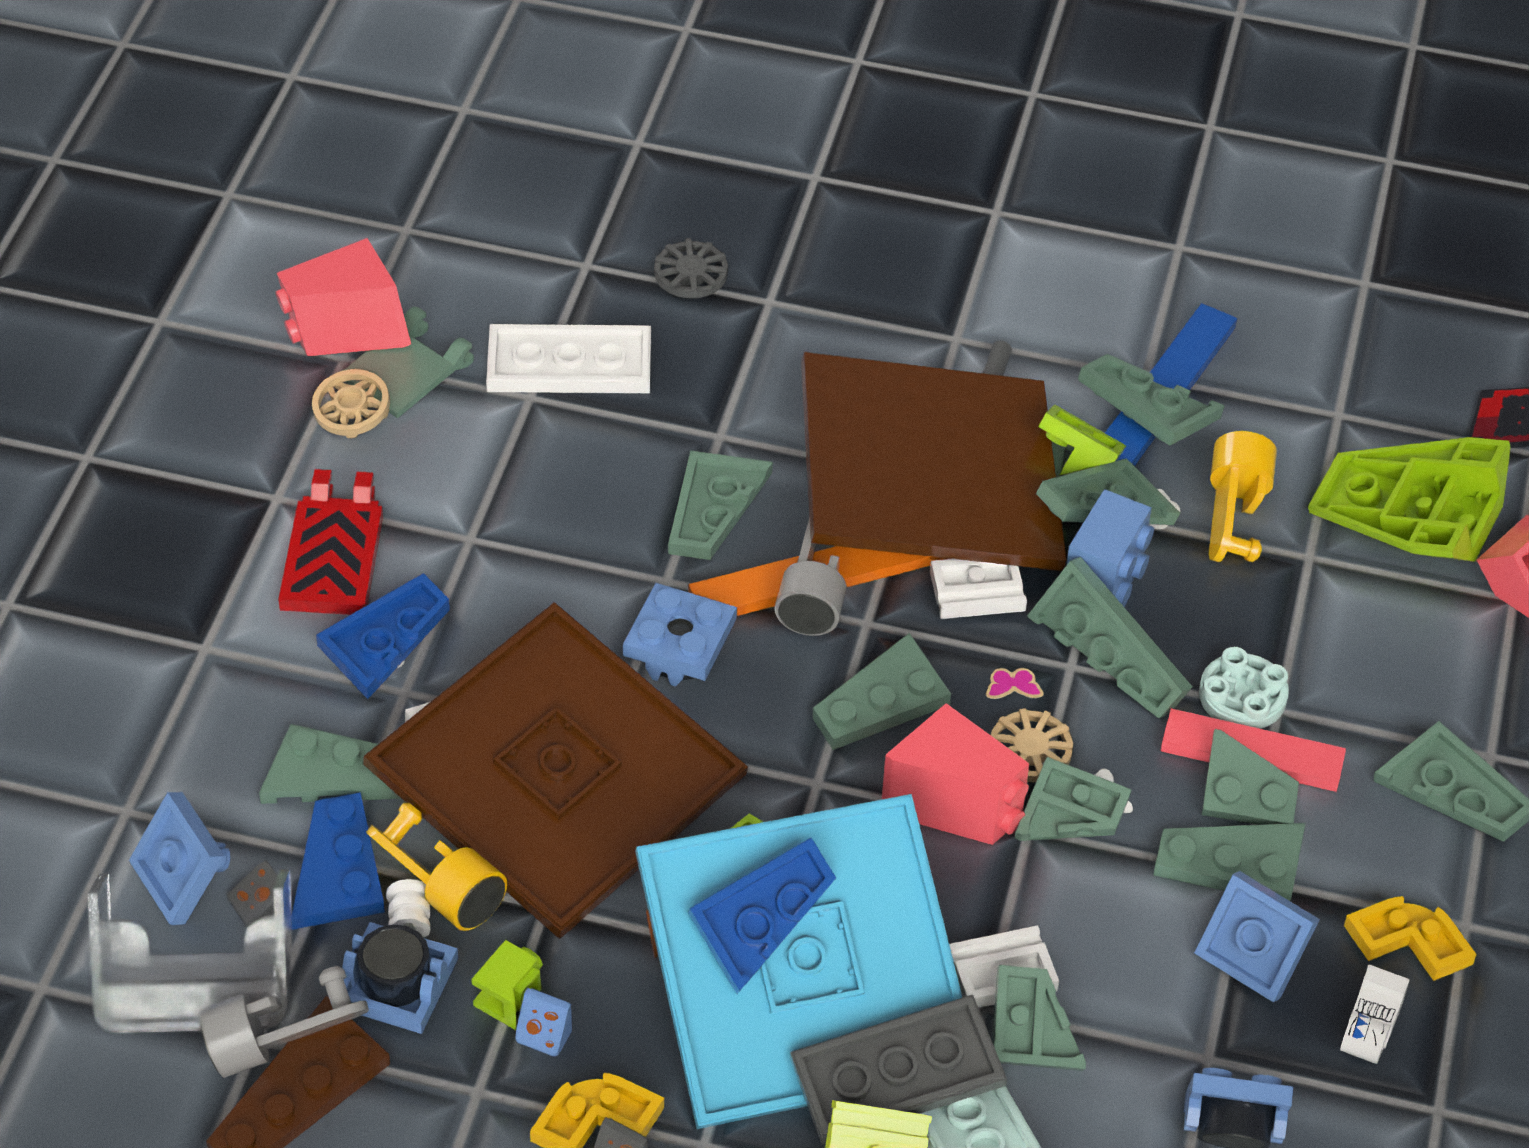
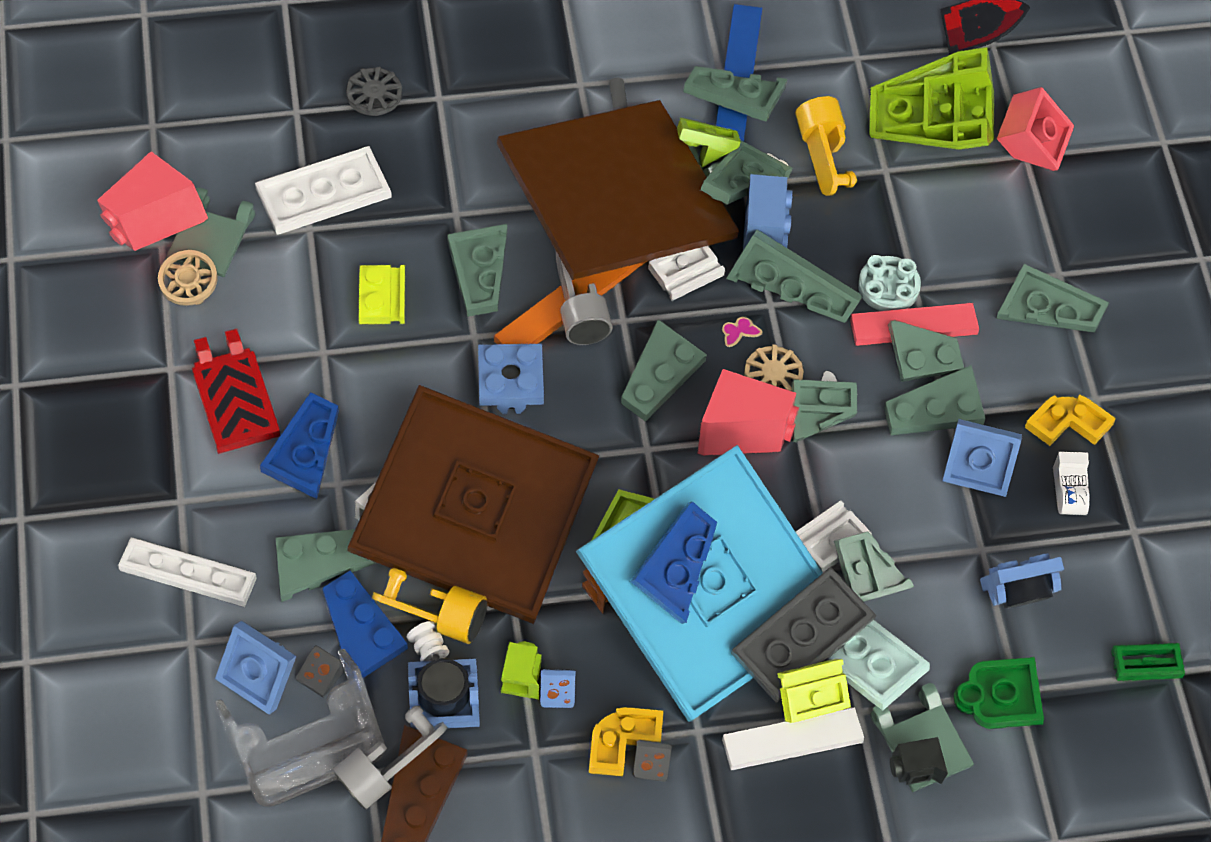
camera: 25 degrees left, 10 degrees up
(167, 728) = (187, 571): none -> white tile
(576, 495) = (381, 294): none -> neon yellow plate

